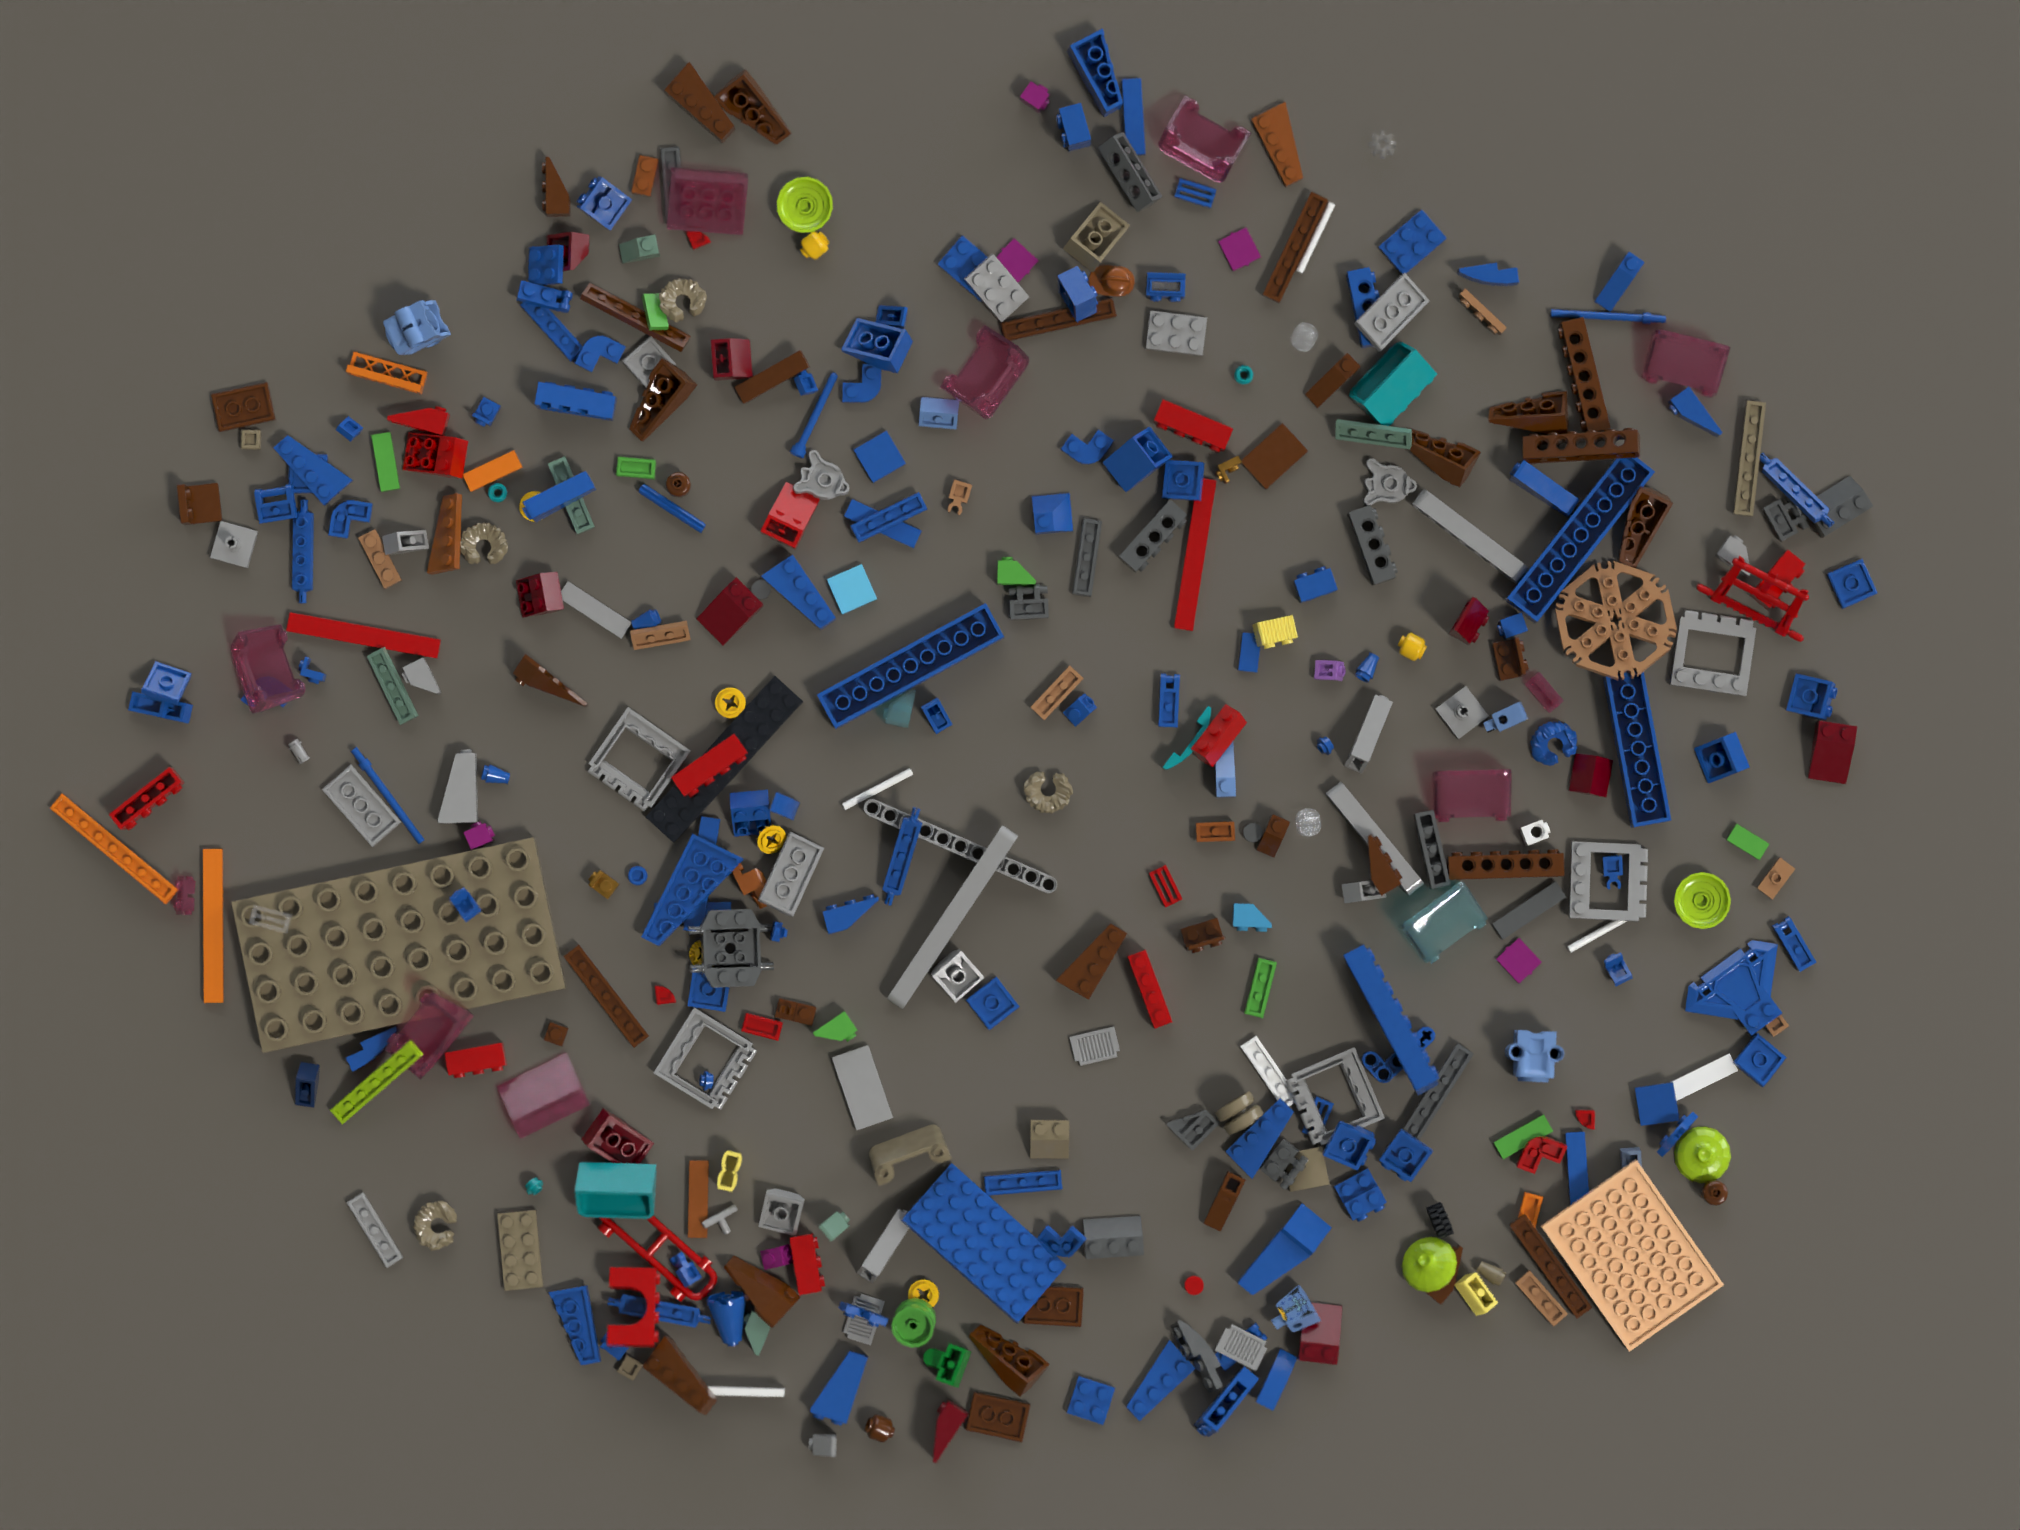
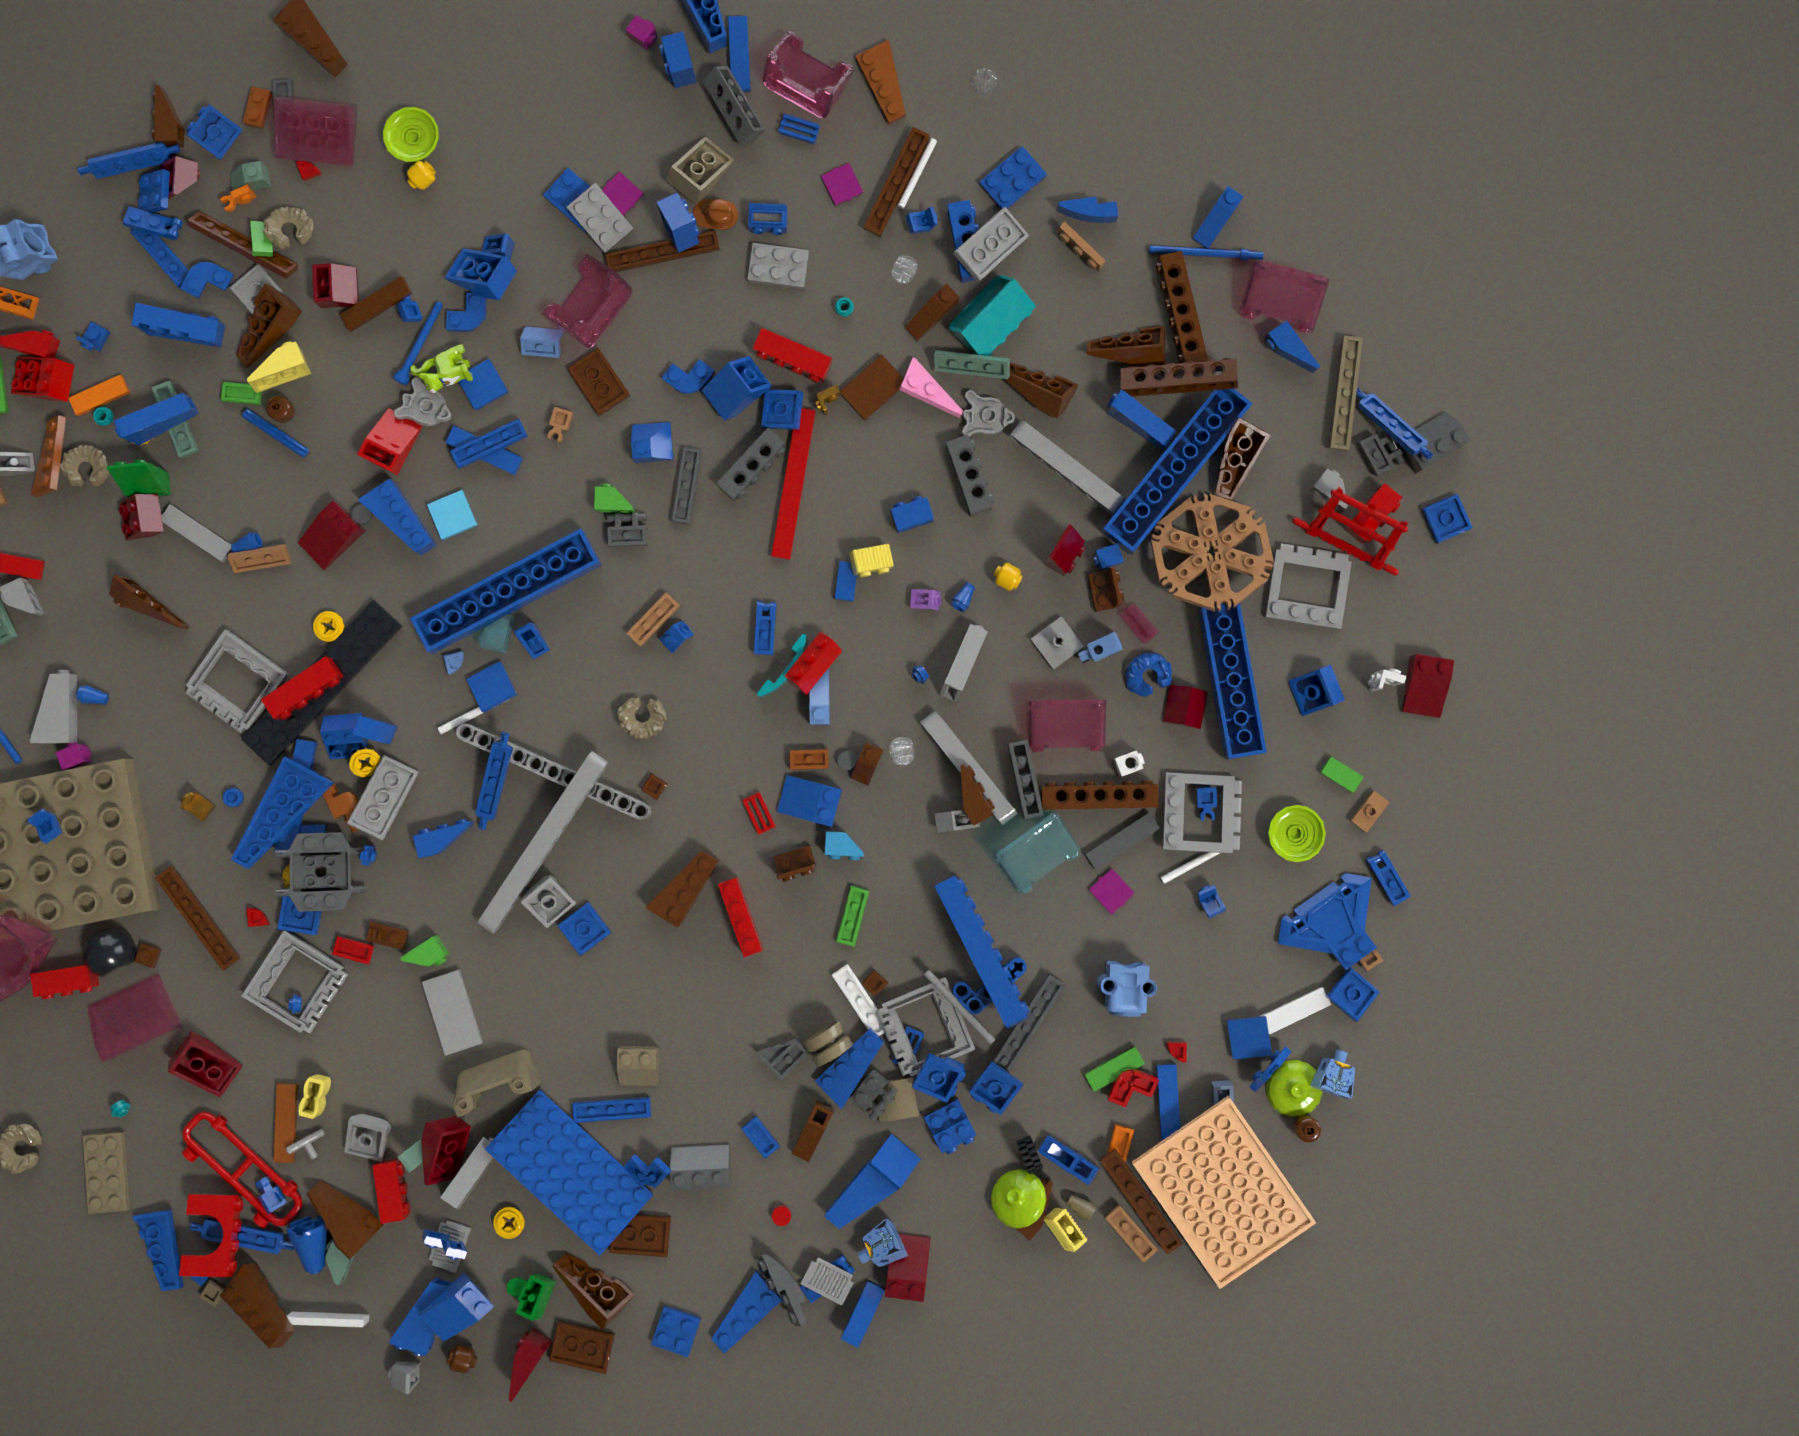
camera: 10 degrees right, 0 degrees up
(518, 232) = (129, 160): none -> blue plate
(519, 1029) = (108, 951): none -> black cylinder
(543, 558) = (140, 478): none -> green slope
(616, 1190) = (196, 1115): teal windscreen -> none
(634, 268) = (241, 196): none -> orange plate
(686, 440) = (282, 366): none -> light yellow slope
(748, 103) = (358, 35): reddish brown wedge -> none
(776, 1257) = (361, 1183): magenta bracket -> none
(845, 440) = (450, 369): none -> lime animal
(856, 737) = (453, 662): none -> medium blue tile
(860, 1220) = (443, 1148): none -> dark red slope
(876, 1376) = (456, 1308): none -> blue slope
(896, 762) = (491, 687): none -> blue tile
(914, 1322) = (496, 1253): bright green wheel -> none
(996, 453) = (598, 382): none -> reddish brown tile
(1059, 860) = (654, 786): none -> reddish brown tile
(1095, 1046) = (686, 972): light grey window -> none
(1171, 1208) = (760, 1137): none -> blue tile
(1216, 873) = (809, 800): none -> blue slope
(1226, 1402) = (811, 1337): blue slope -> none
(1283, 1054) = (874, 983): none -> reddish brown tile
(1321, 287) = (922, 221): none -> blue bracket
(1323, 454) = (925, 388): none -> bright pink wing
(1366, 1073) = (961, 1009): none -> light grey piece
(1479, 1226) = (1069, 1160): none -> blue slope
(1742, 1141) = (1335, 1076): none -> medium blue torso
(1792, 743) = (1391, 677): none -> white bracket
(1811, 697) = (1407, 630): blue plate -> none

